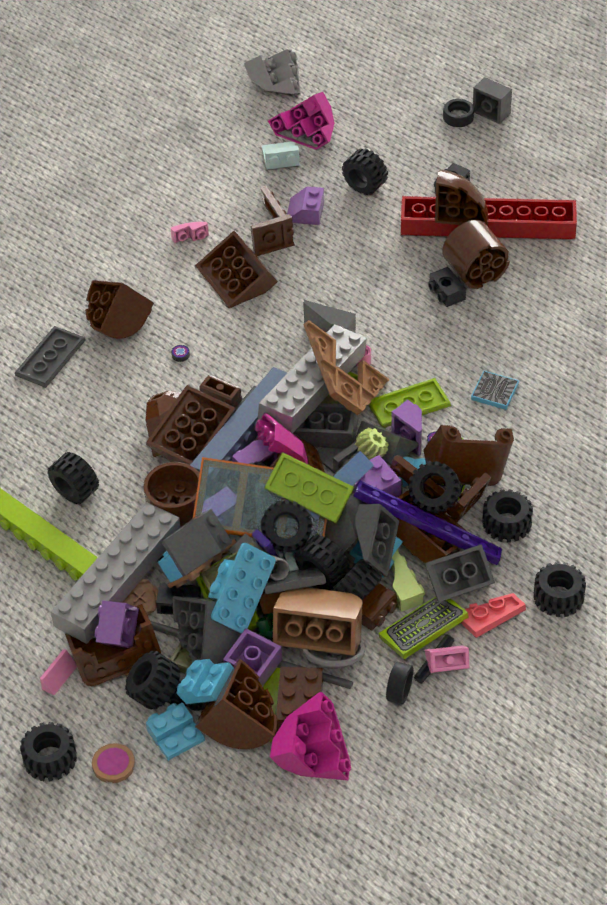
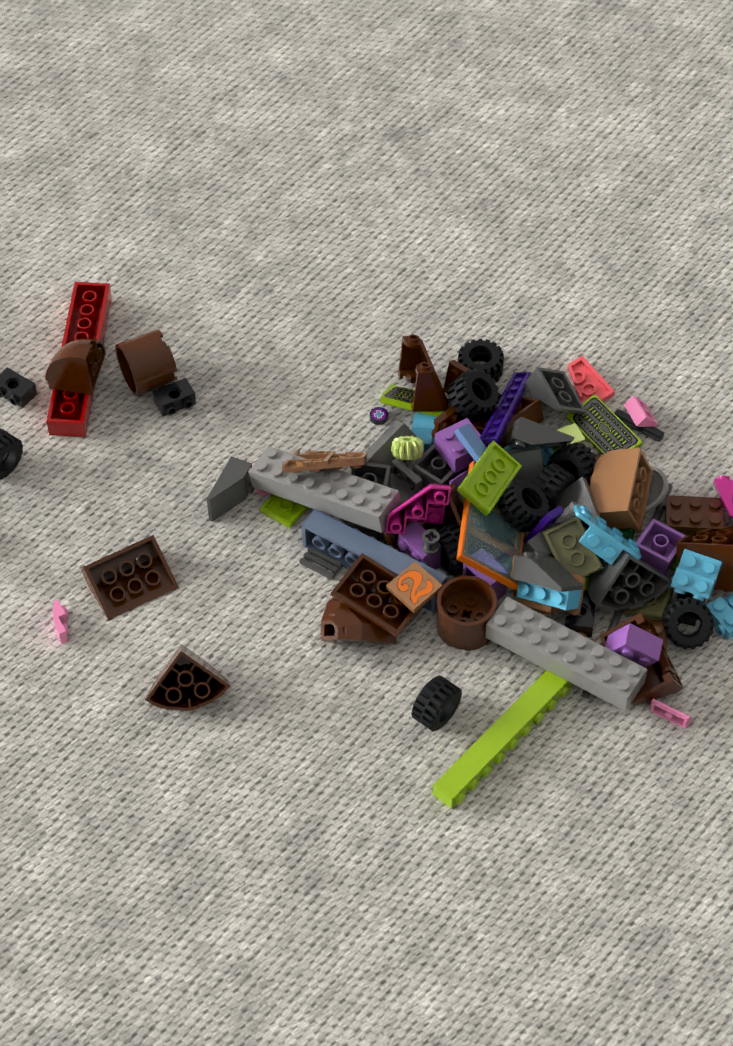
camera: 90 degrees left, 5 degrees up
(50, 356) = (239, 750): dark grey tile -> none
(180, 353) = (245, 627): tile -> none
(193, 446) = (414, 587): none -> medium nougat tile
(221, 390) = (317, 583): reddish brown brick -> none
(243, 453) = (428, 541): none -> dark grey bush
(273, 233) = (53, 535): reddish brown bracket -> none
(307, 206) = (34, 514): medium lavender slope -> none
(399, 683) = (675, 434): black tyre -> none
(408, 423) = (372, 423): medium lavender slope -> none
(426, 395) = (326, 429): lime tile -> none
(495, 390) = (315, 369): tile -> none
(557, 601) = (565, 341): black tyre -> none

